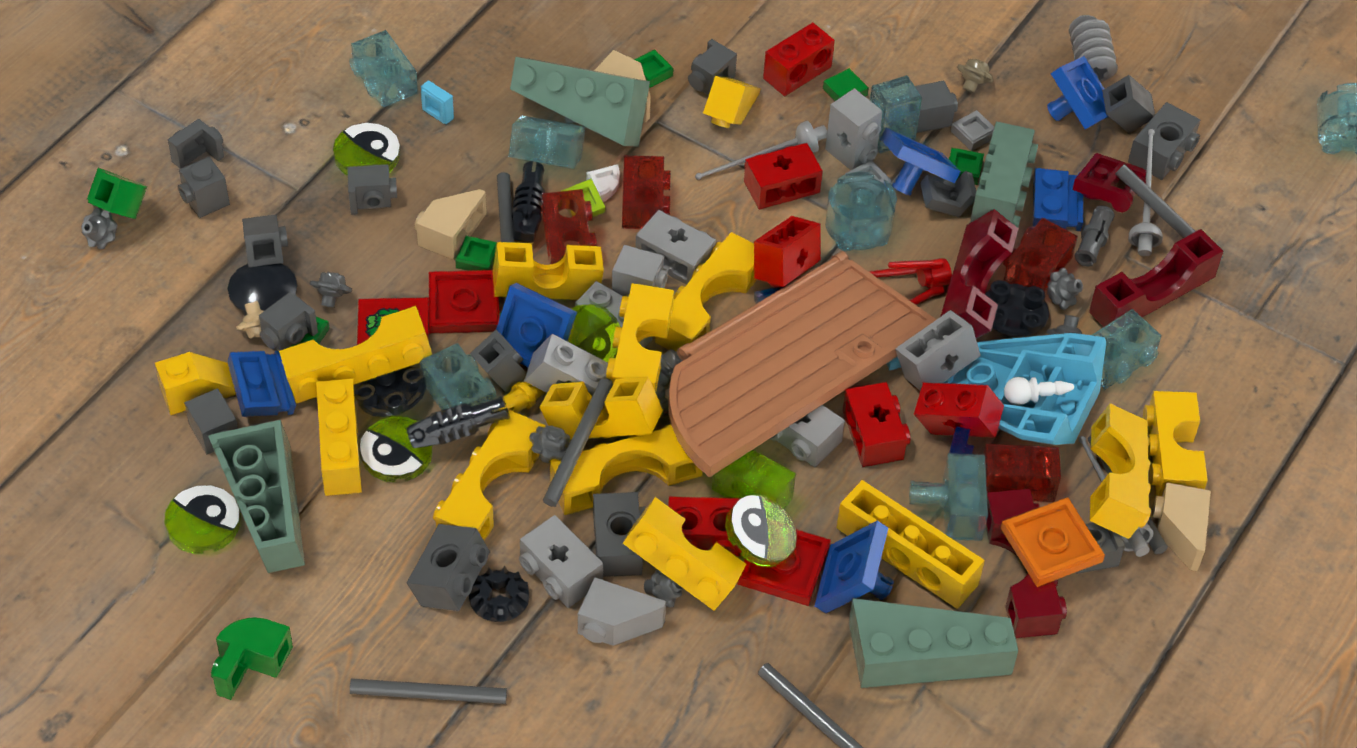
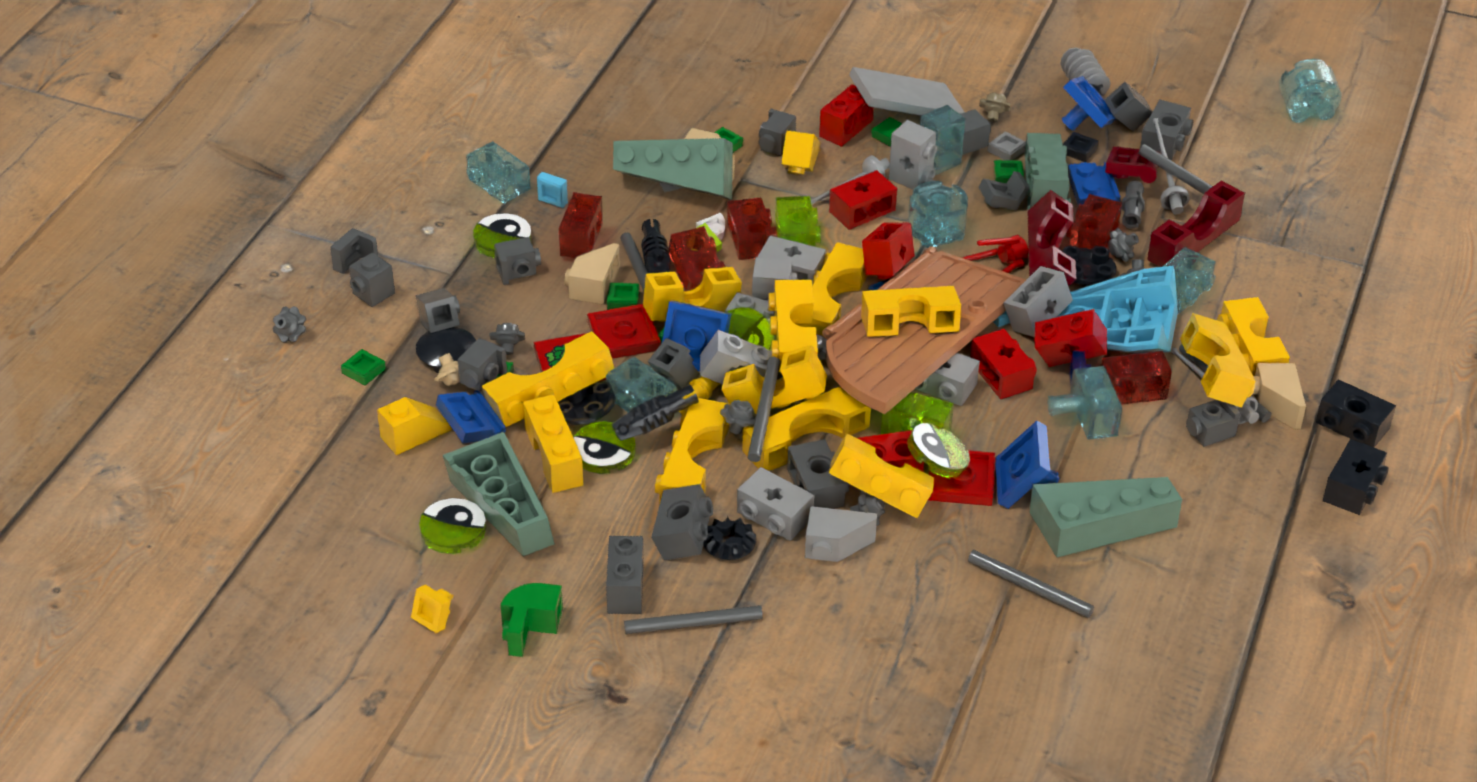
camera: 10 degrees left, 10 degrees down
(116, 193) = (298, 291): green brick -> none
(147, 622) = (431, 607): none -> yellow tile
(166, 296) = (363, 367): none -> green tile
(208, 416) = (431, 445): dark grey brick -> none
(366, 622) = (625, 575): none -> dark grey brick
(452, 158) = (580, 225): none -> clear red brick
(547, 141) = (657, 202): clear light blue brick -> none
(696, 194) = (797, 220): none -> clear neon green brick
(805, 342) = (932, 306): none -> yellow arch
(873, 45) = (902, 92): none -> light grey tile
(914, 545) = (1070, 441): yellow brick -> none
(917, 158) = (972, 168): blue tile -> none
(1020, 390) = (1118, 316): white bar -> none
(1031, 608) = (1148, 420): dark red arch -> none
(1052, 541) = (1181, 418): orange tile -> none
(1058, 144) = (1080, 146): none -> black tile
(1237, 652) = (1355, 477): none -> black brick
(1257, 550) = (1355, 413): none -> black brick

